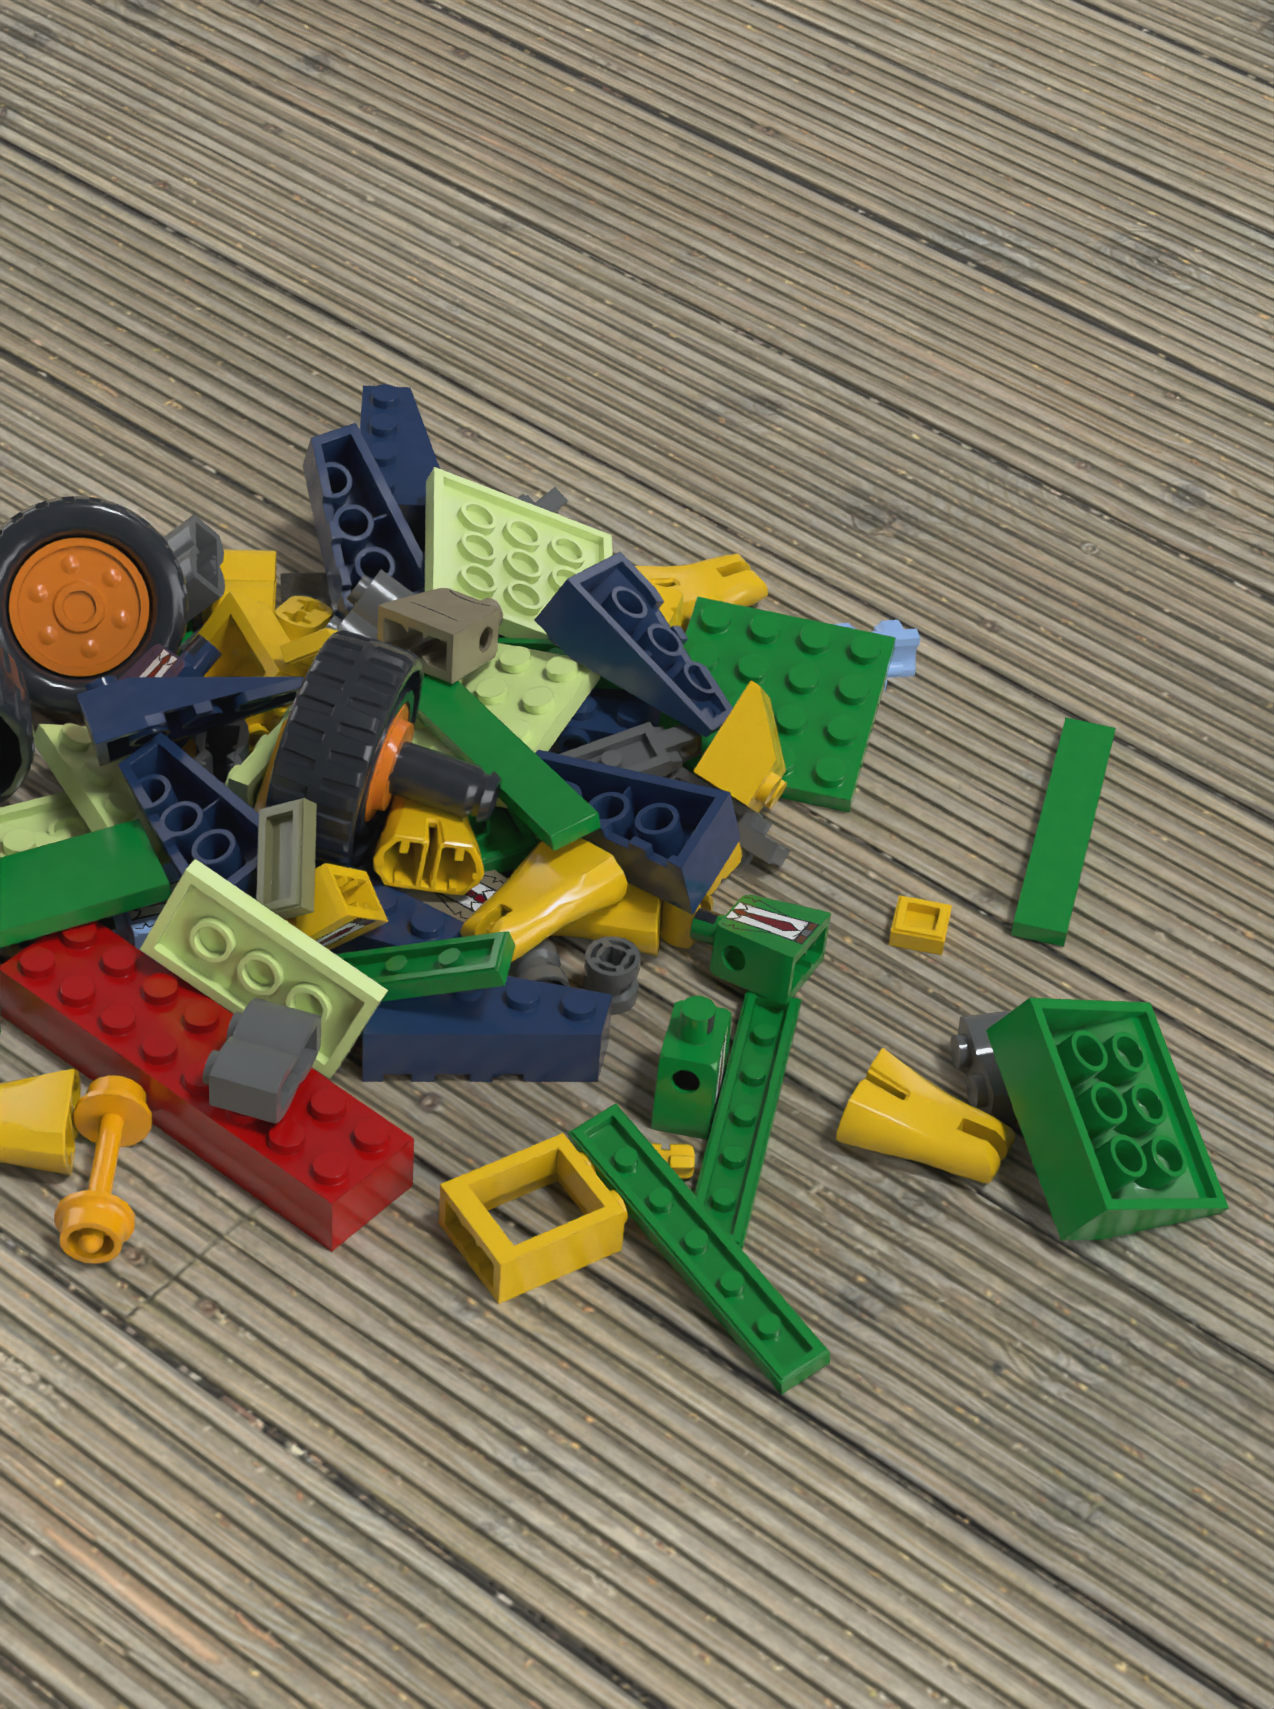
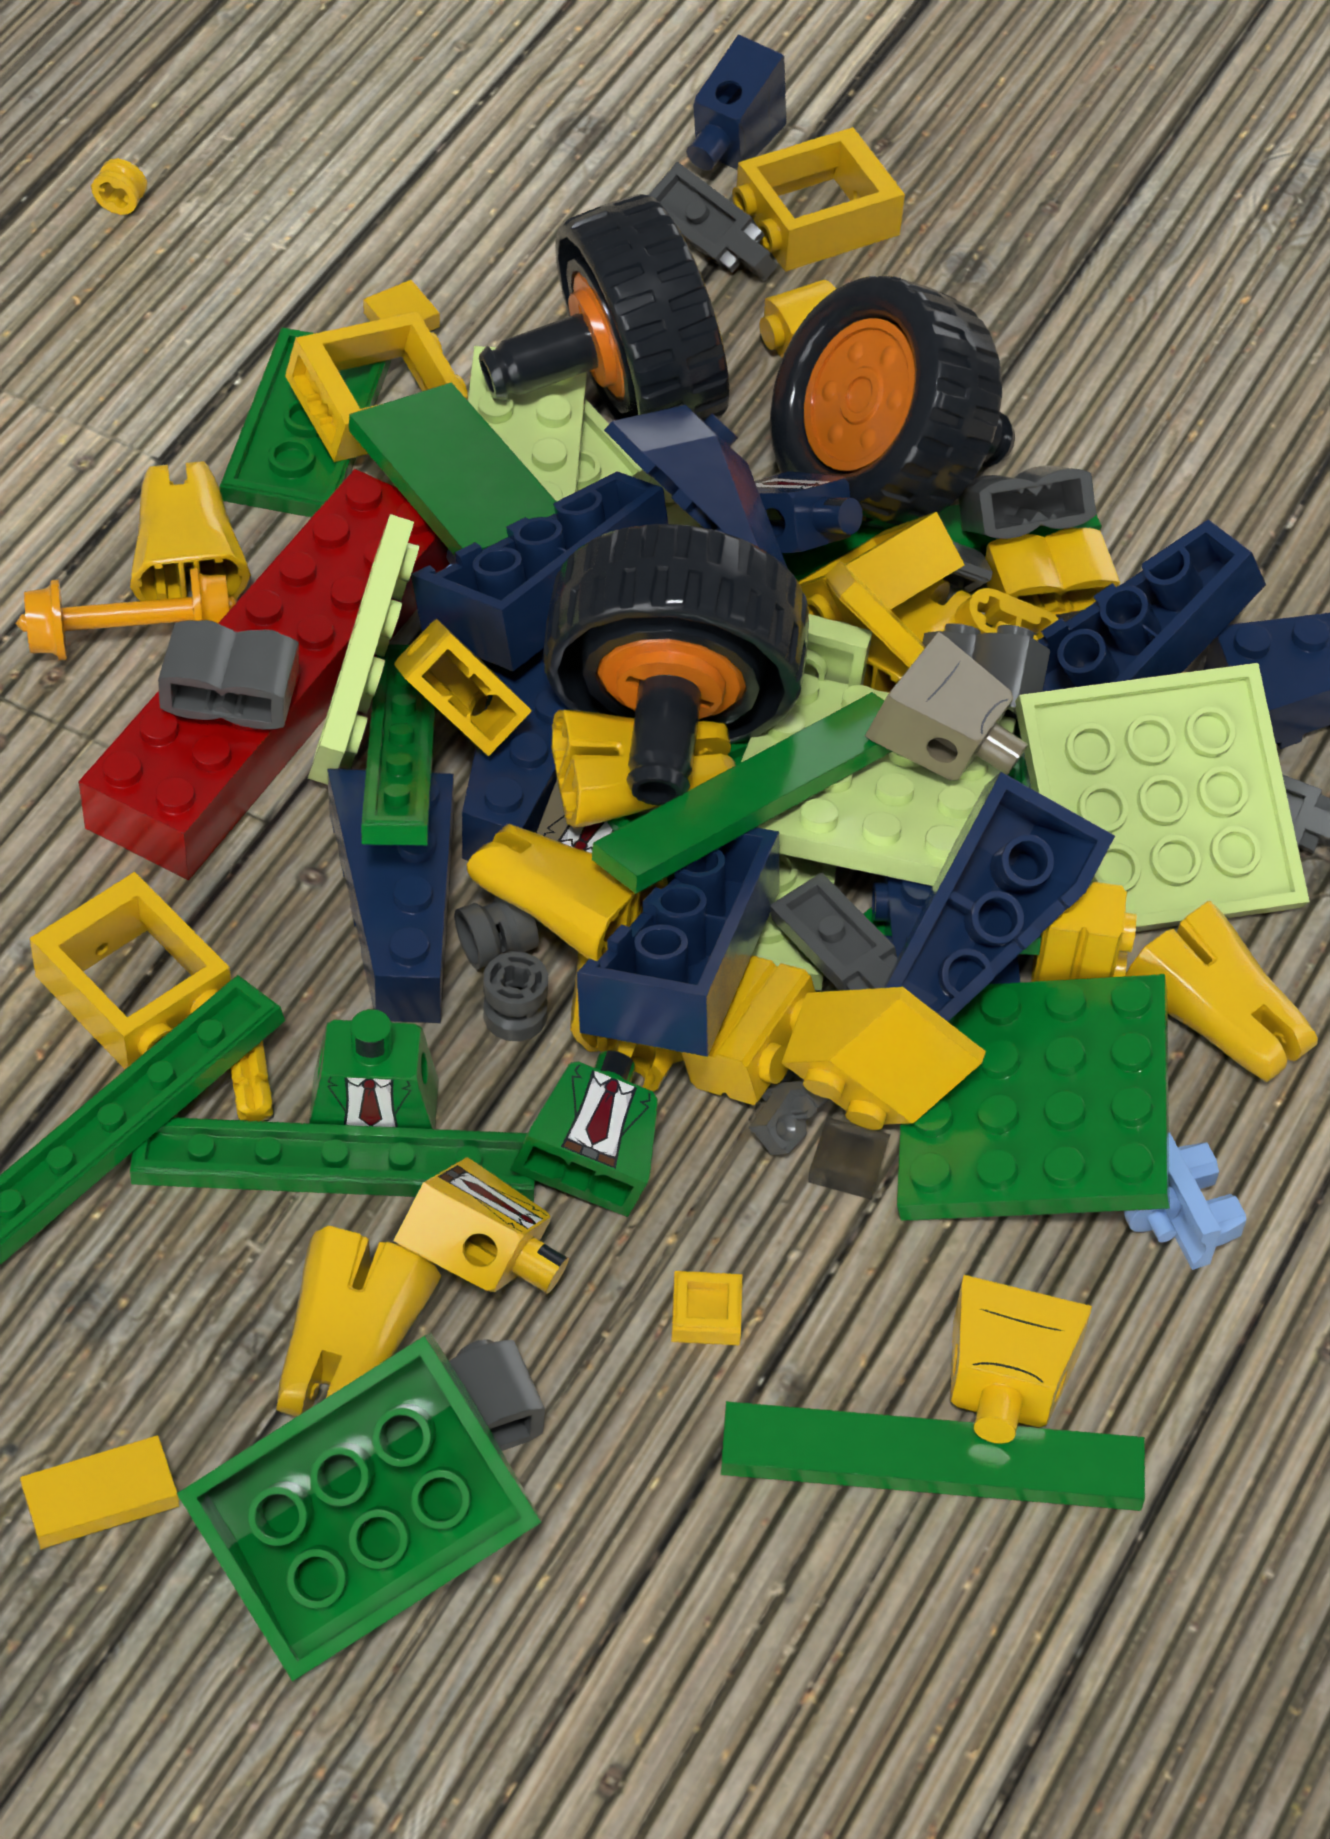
camera: 80 degrees right, 10 degrees up
(287, 858) = (456, 605): olive tile -> none
(796, 823) = (849, 1158): none -> clear smoke tile
(878, 1014) = (481, 1230): none -> yellow torso
(998, 763) = (1012, 1355): none -> yellow torso
(1053, 1305) = (99, 1492): none -> yellow tile

